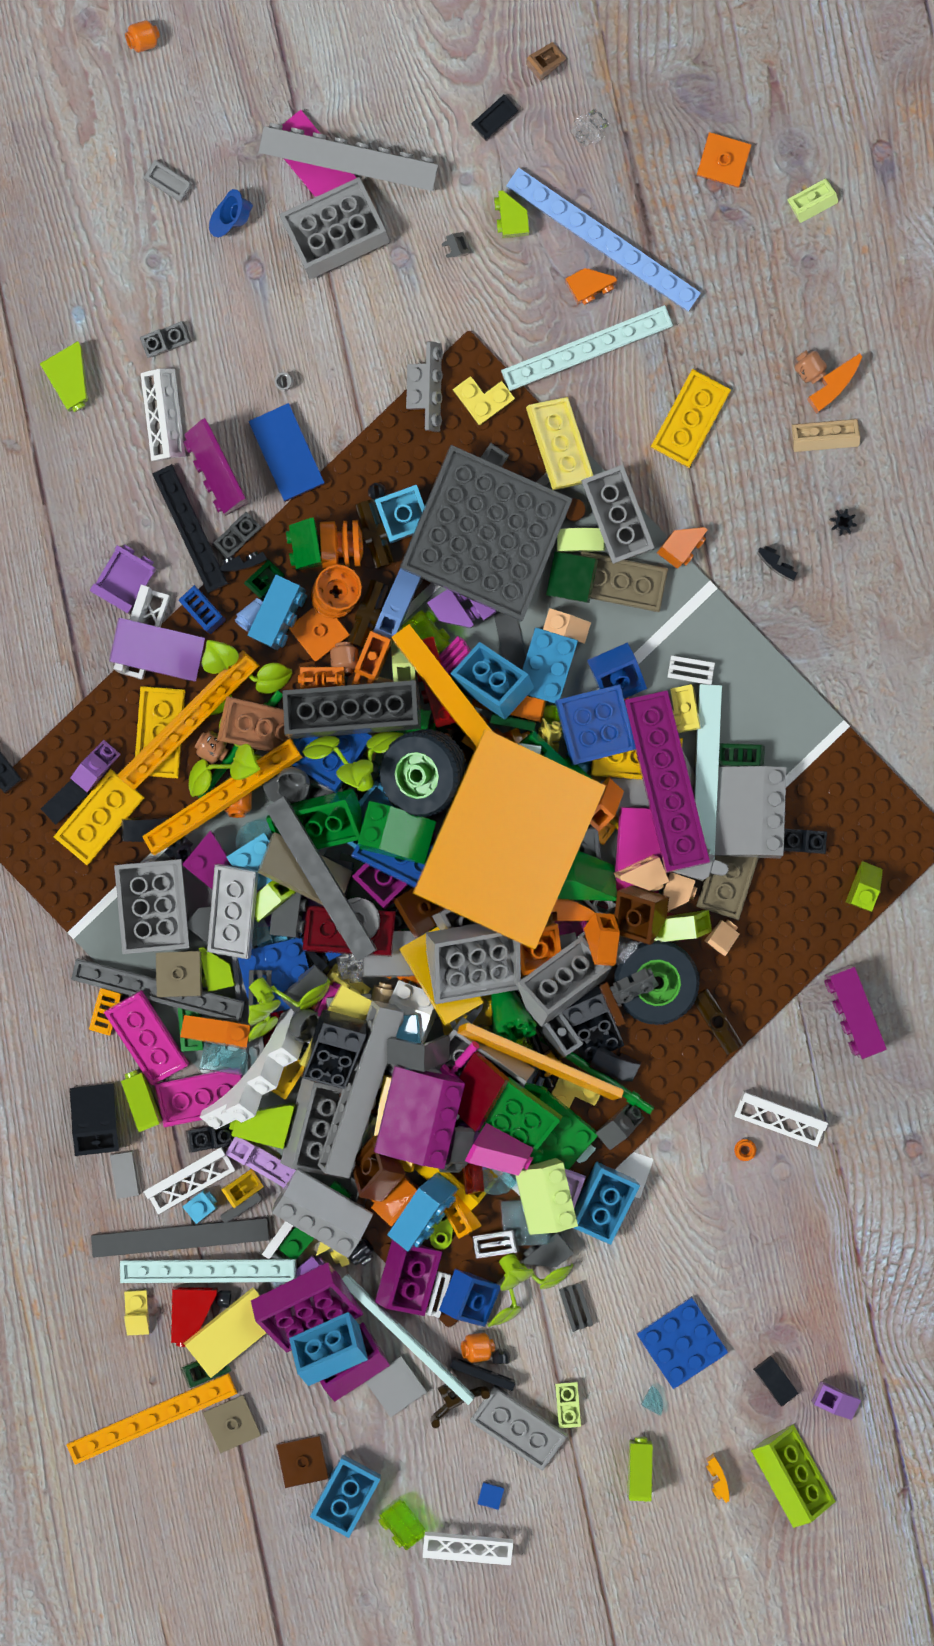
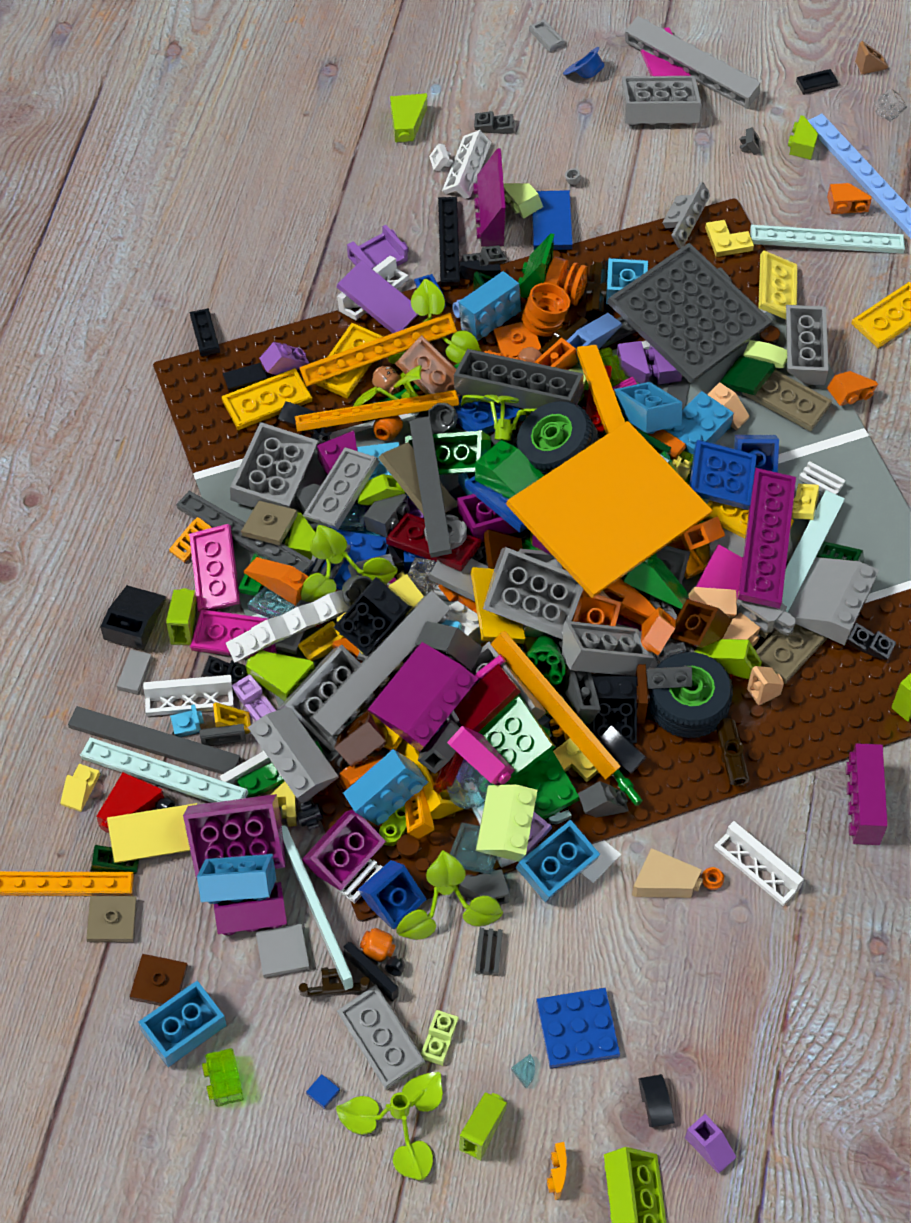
camera: 20 degrees right, 30 degrees down
(129, 419) = (440, 157): none -> white tile
(246, 443) = (522, 198): none -> yellowish green slope
(467, 1548) = (275, 1131): white fence -> none
(513, 1241) = (426, 859): tile -> none
(575, 1459) = (361, 1113): none -> lime plant
(704, 1169) = (666, 877): none -> tan slope

